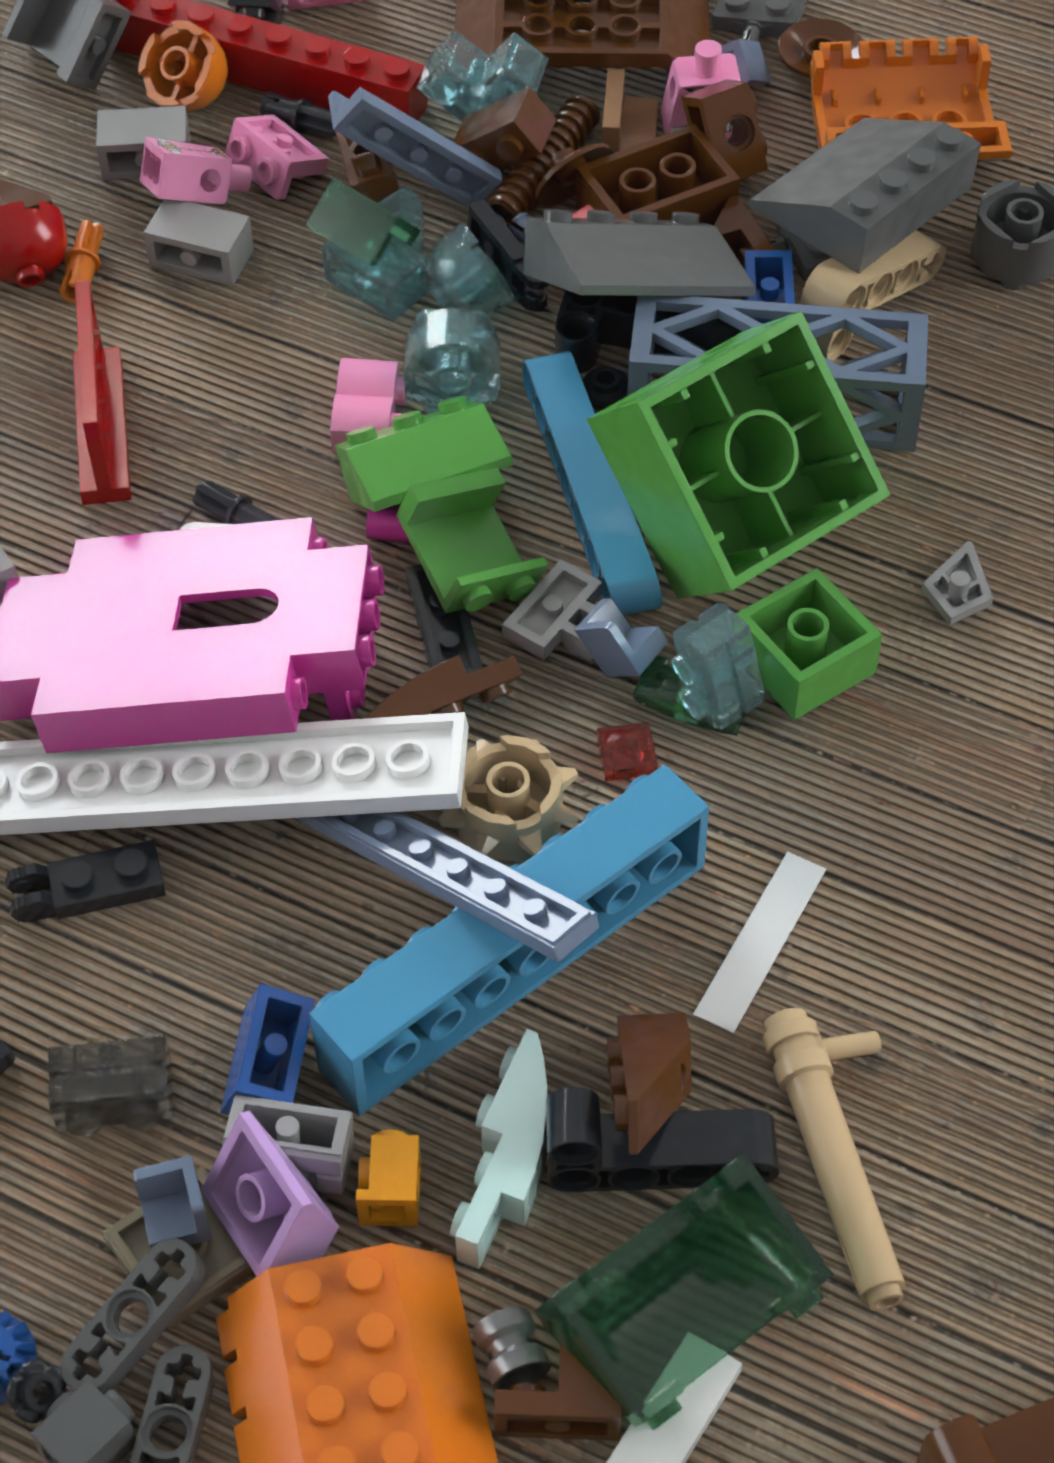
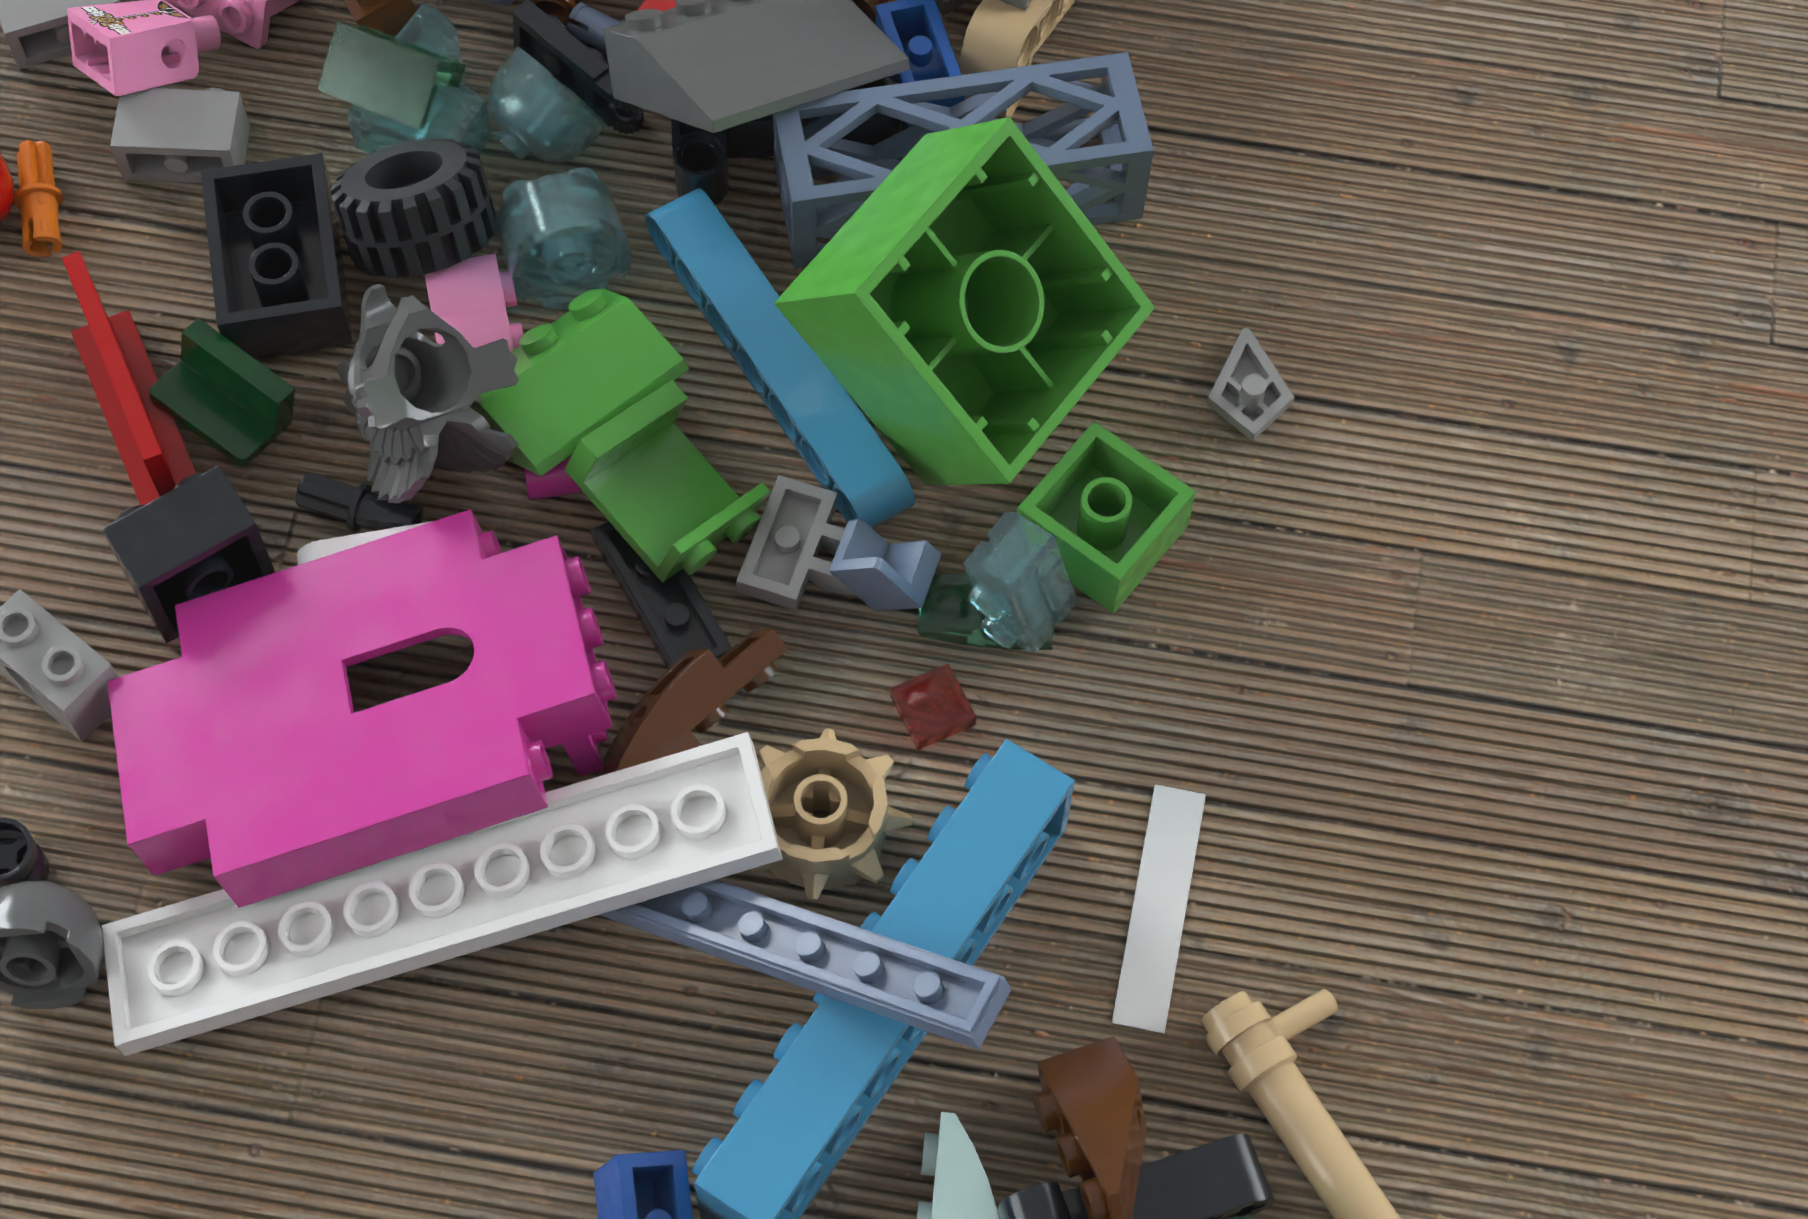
camera: 20 degrees left, 10 degrees up
(86, 883) = (344, 1056): black hinge -> none
(97, 497) = (187, 546): none -> black brick
(167, 415) = (224, 395): none -> dark green panel
(236, 331) = (276, 257): none -> black brick
(301, 431) = (418, 396): none -> dark grey piece
(348, 316) = (415, 208): none -> black tyre
(605, 386) = (760, 234): black plate -> none

